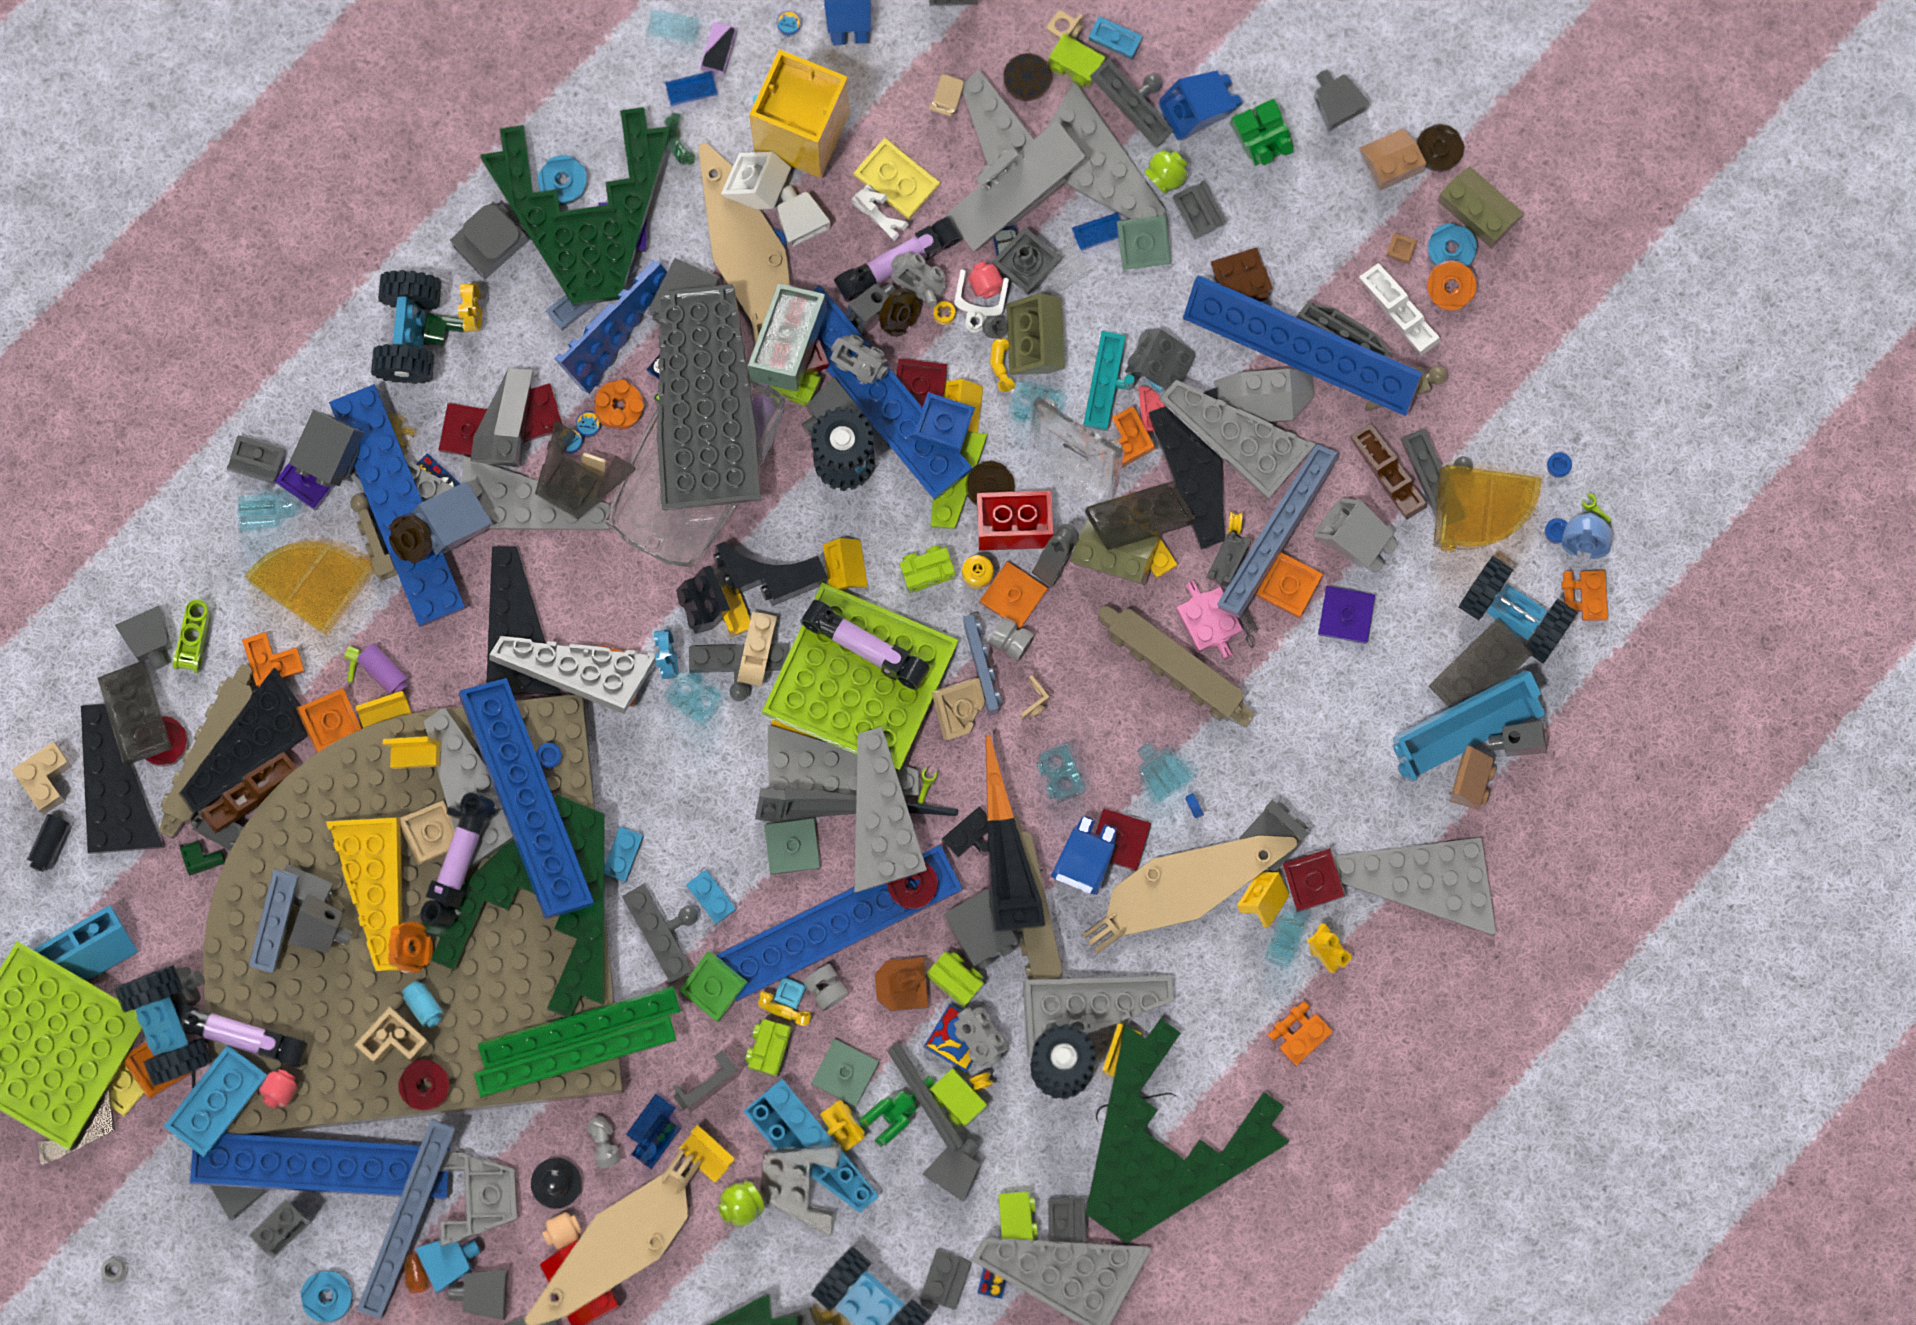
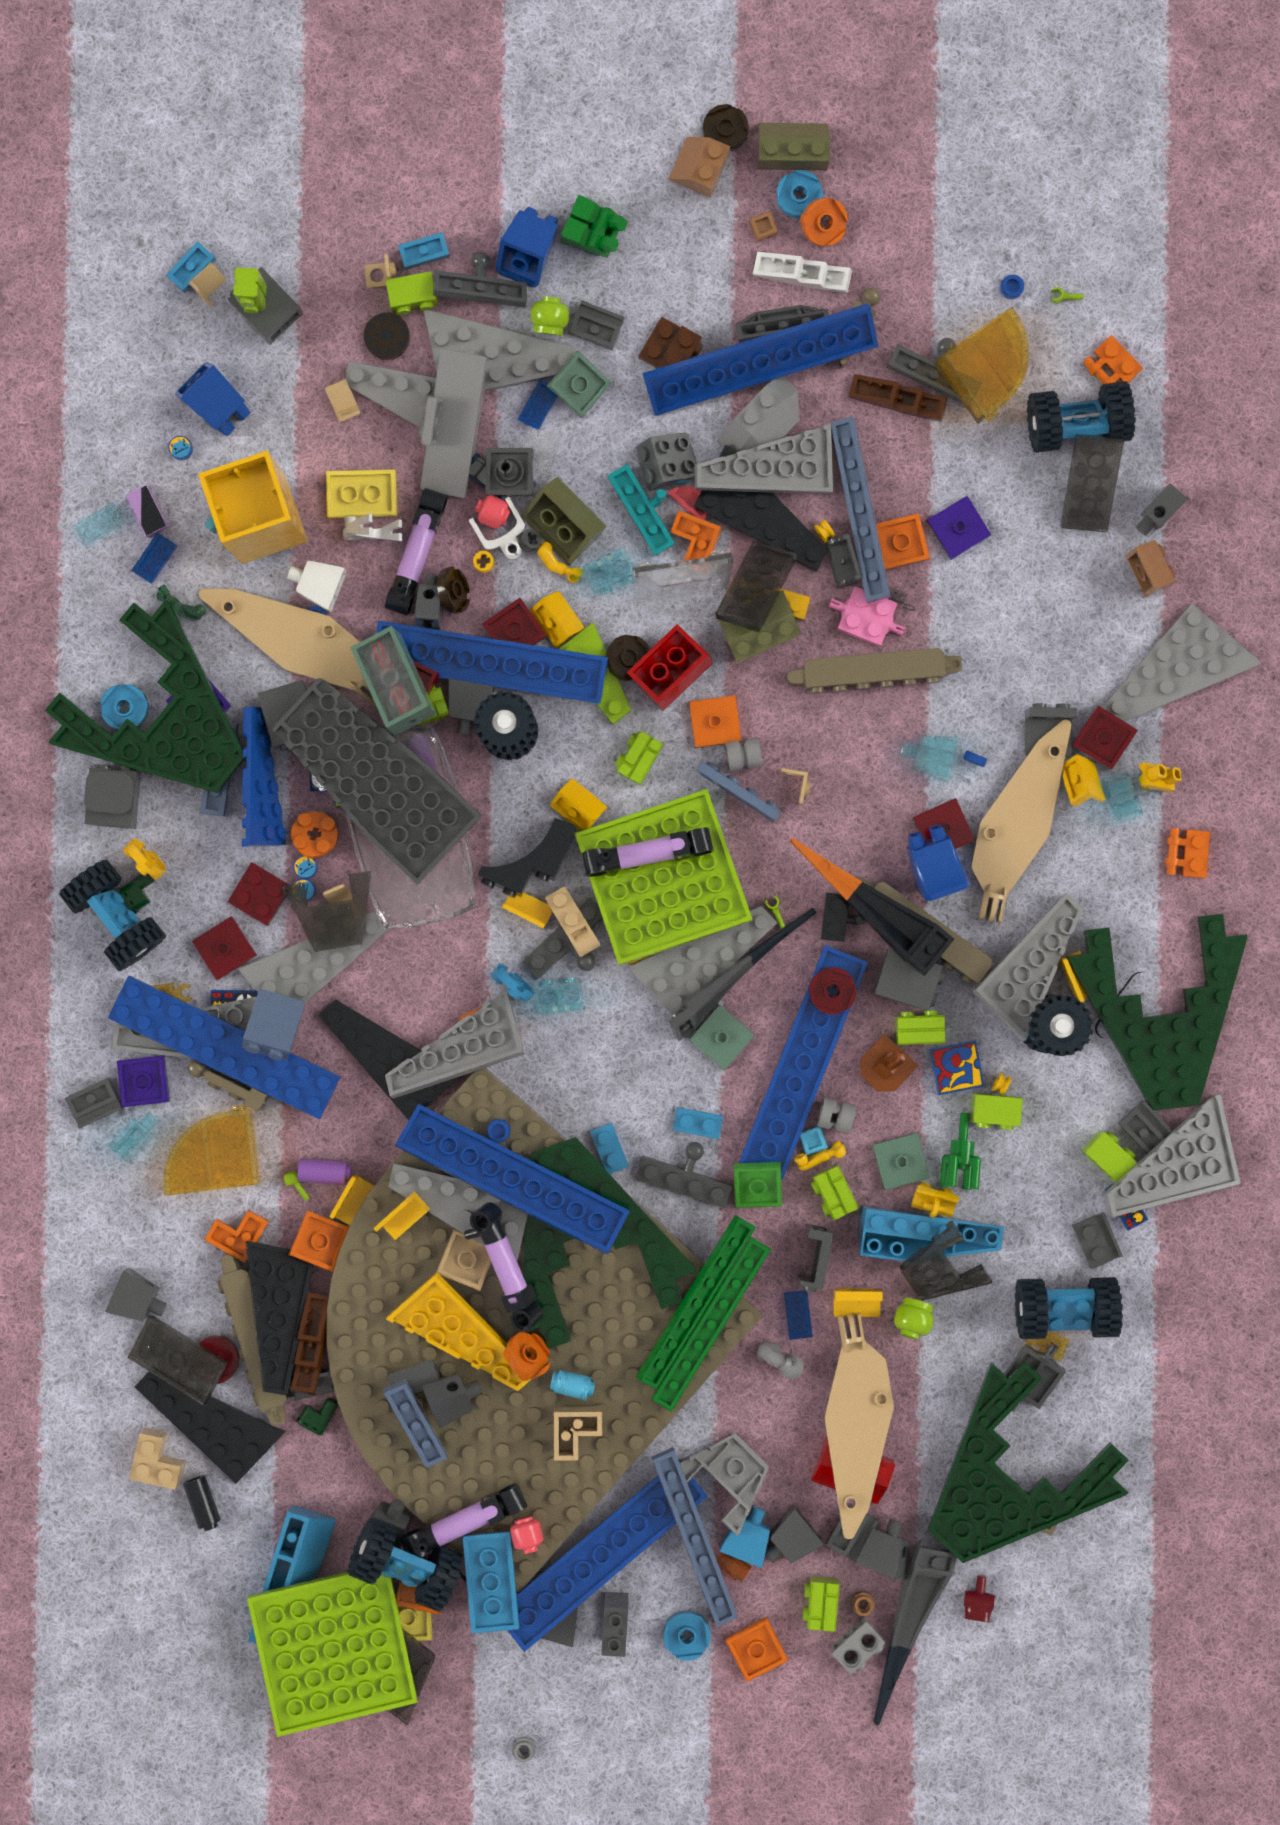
camera: 45 degrees left, 10 degrees up
(190, 654) = (169, 1281): lime piece -> none
(326, 449) = (138, 1055): dark grey brick -> none
(410, 538) = (258, 1066): dark brown tile -> none
(412, 1076) = (624, 1425): dark red plate -> none
(503, 425) = (246, 921): dark grey wedge -> none
(556, 1183) = (772, 1416): black plate -> none
(562, 1230) = (807, 1446): light nougat head -> none
(655, 1141) = (815, 1326): clear blue tile -> none
(702, 600) = (503, 922): black plate -> none
(756, 179) = (263, 583): white slope -> none
(866, 364) = (465, 649): light grey brick -> none
(884, 831) = (781, 972): light grey wing -> none
(918, 277) = (444, 552): light grey brick -> none
(925, 1098) = (975, 1131): dark grey axle -> none
(943, 423) = (558, 642): blue tile -> none
(955, 1170) = (1038, 1161): dark grey torso -> none
(958, 707) = (749, 836): tan plate -> none
(972, 578) = (676, 736): yellow head -> none
(980, 1036) = (976, 1055): light grey brick -> none
(1056, 554) = (722, 666): dark grey piece -> none
(1067, 772) = (865, 813): clear light blue brick -> none
(1338, 99) = (623, 155): dark grey torso -> none
(1356, 533) = (915, 463): light grey hips -> none
(1467, 724) = (1116, 530): dark azure panel -> none
(1554, 530) = (1052, 336): blue tile -> none
(1588, 535) = (1079, 316): medium blue cylinder -> none

